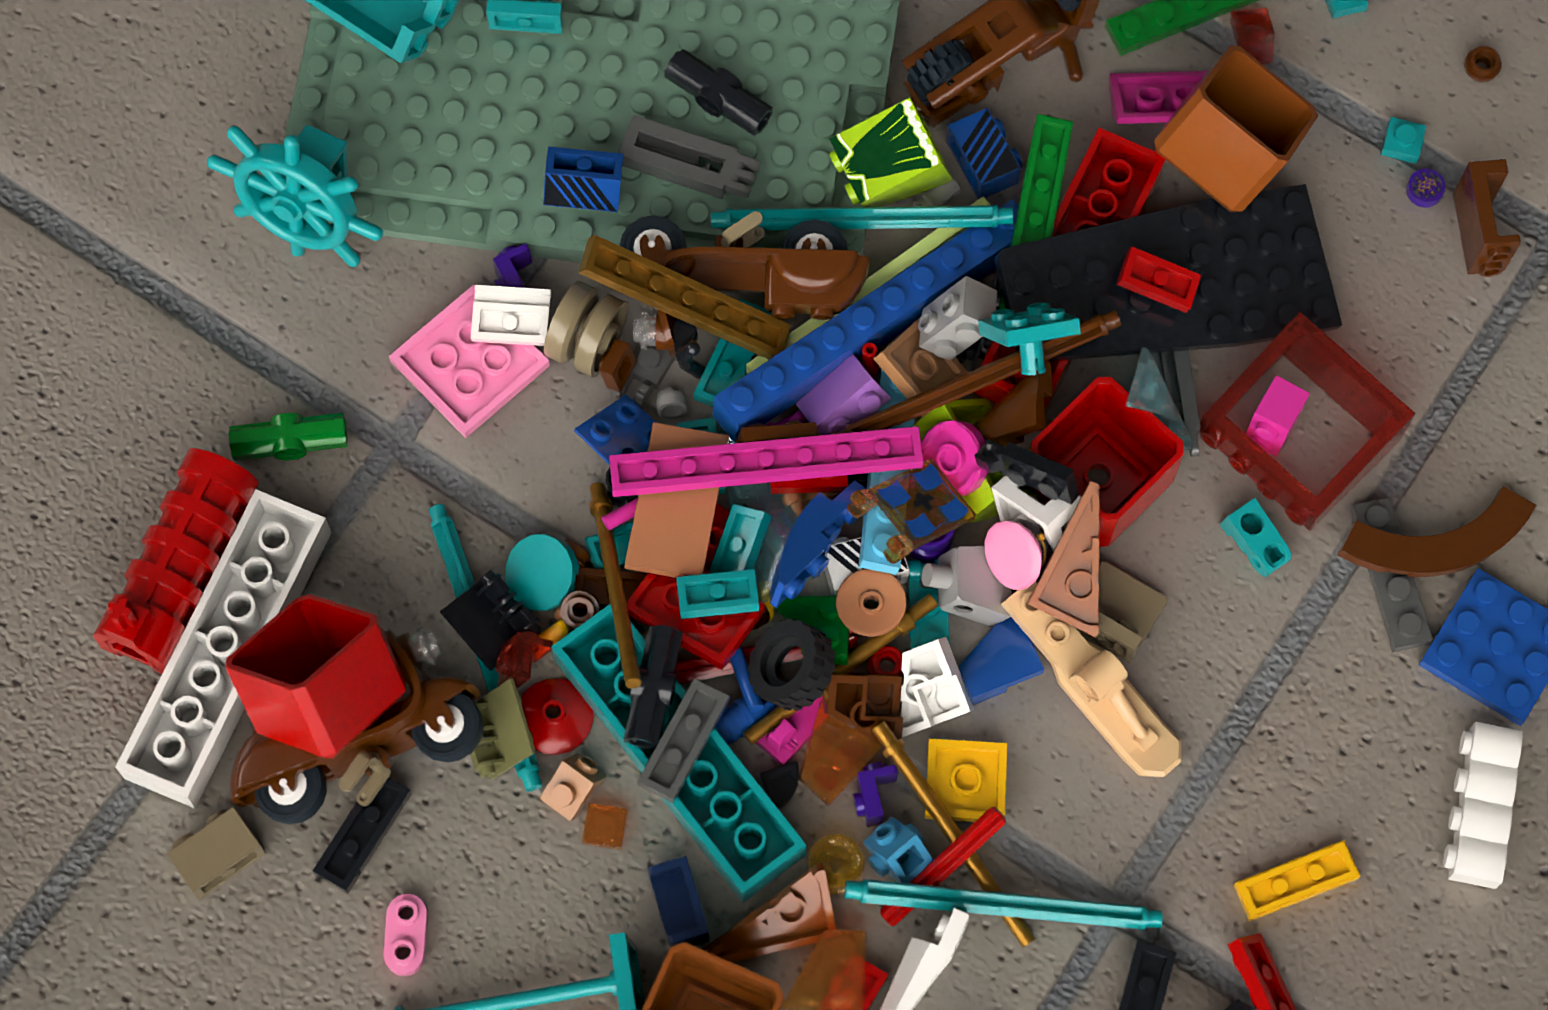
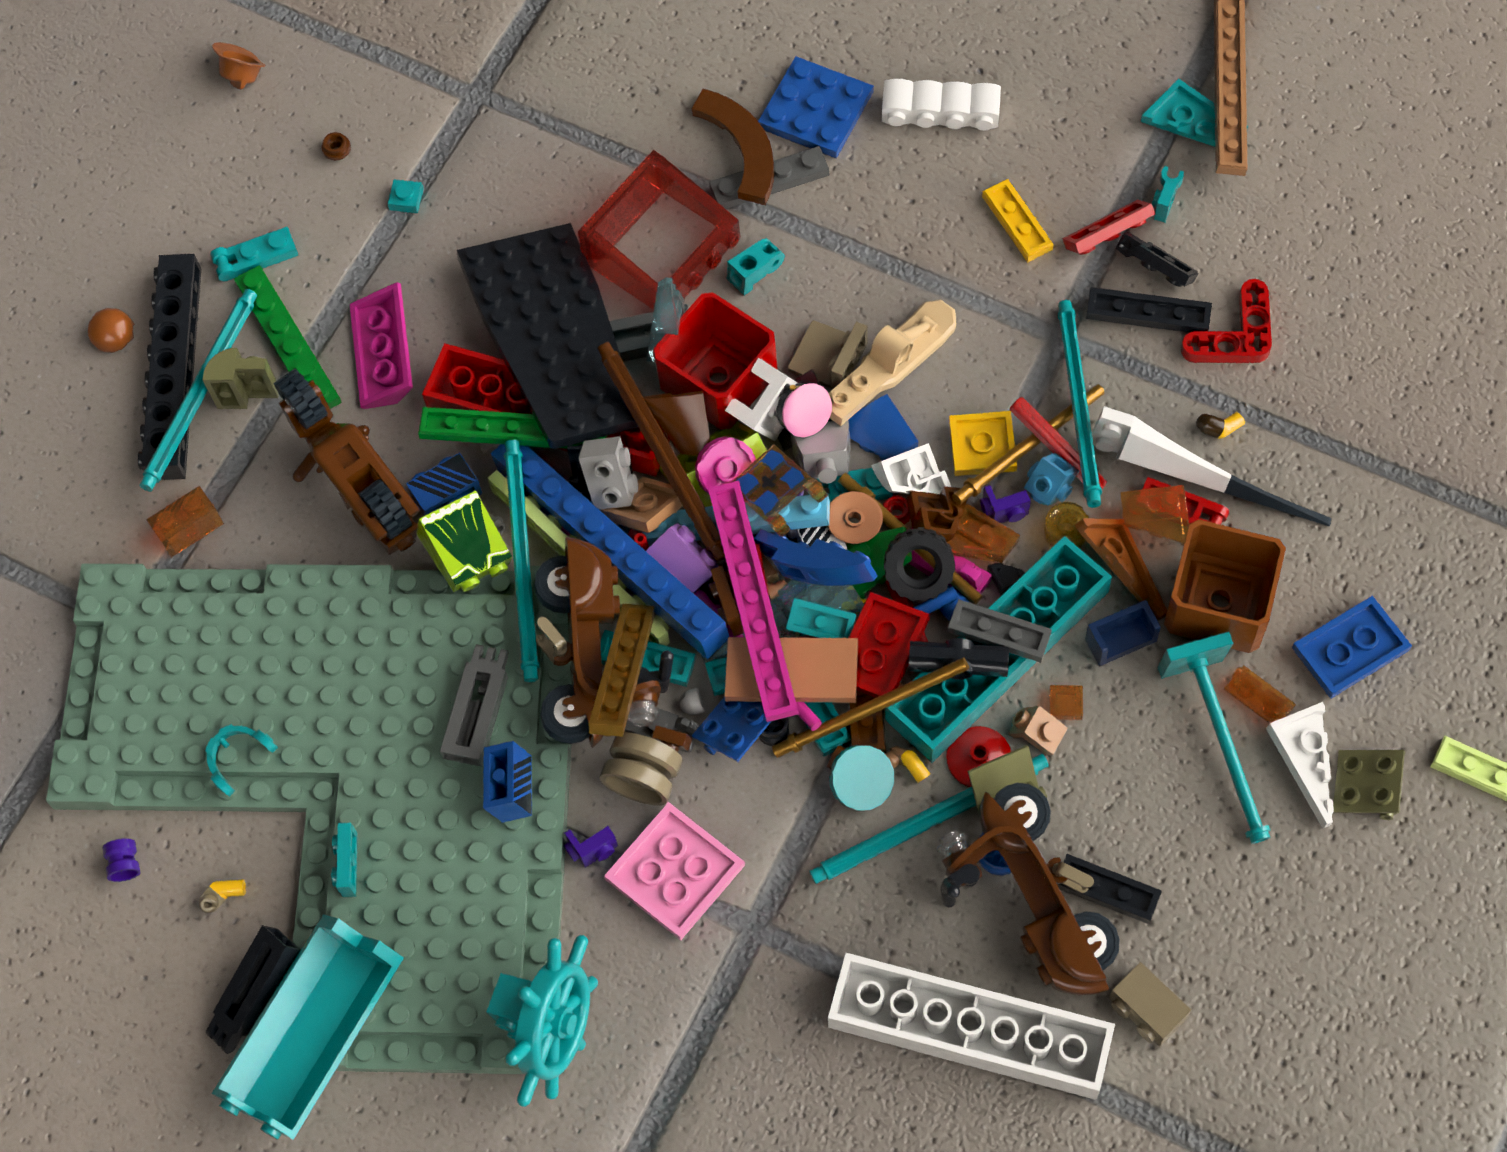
camera: 90 degrees left, 5 degrees down
(176, 559) = (902, 1079): red piece -> none
(288, 436) = (764, 1013): green piece -> none
(316, 675) = (985, 909): red plate -> none
(405, 933) = (1186, 842): bright pink plate -> none
(489, 617) = (909, 808): black hinge -> none
(510, 315) = (635, 832): white plate -> none
(518, 655) = (945, 777): clear red bracket -> none
(578, 596) = (897, 734): reddish brown plate -> none
(717, 594) = (870, 623): teal plate -> none
(718, 92) = (411, 688): black piece -> none
(1028, 331) = (626, 400): teal plate -> none
(1029, 469) = (741, 396): black hinge -> none
(1071, 577) = (812, 363): wing -> none
(1158, 279) = (561, 328): red plate -> none
(1235, 129) = (428, 281): dark orange plate -> none
(1254, 33) = (319, 303): clear red bracket -> none
(1277, 415) = (657, 250): dark pink brick -> none
(1425, 188) = (446, 178): dark purple tile -> none
(1483, 248) = (476, 132): reddish brown panel -> none

